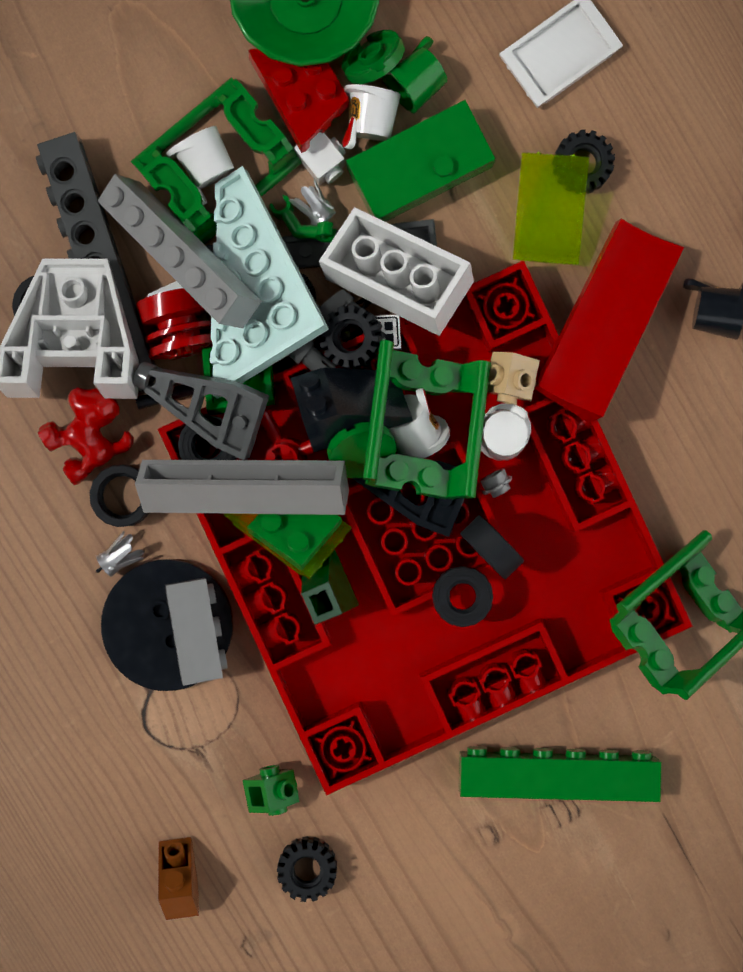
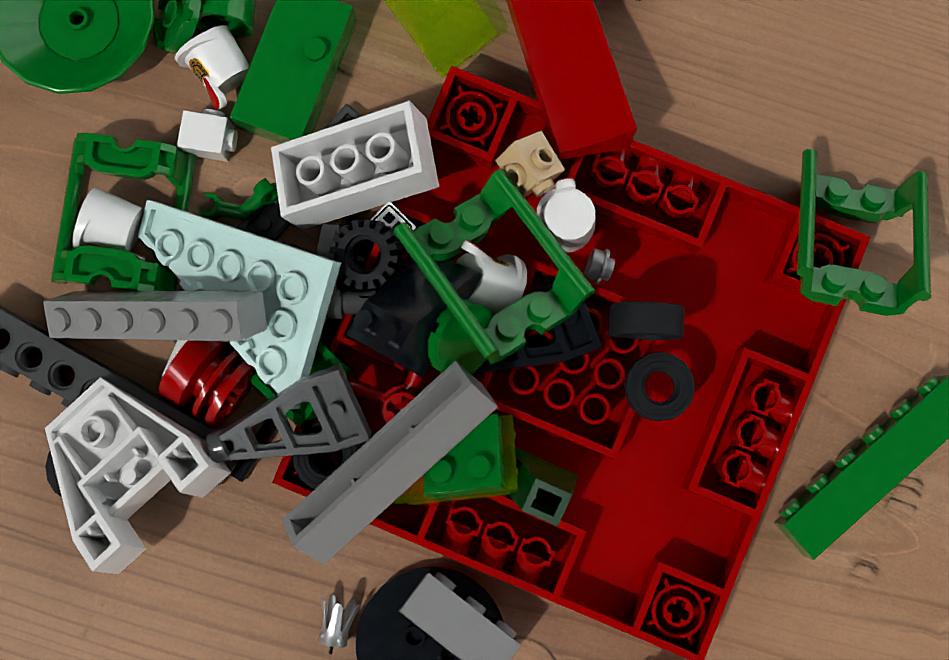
camera: 45 degrees left, 5 degrees down
(84, 433) = (213, 544): red animal -> none
(97, 498) = (277, 592): black tyre -> none
(303, 95) = (147, 98): red wing -> none
(320, 209) = (246, 176): flat silver piece -> none

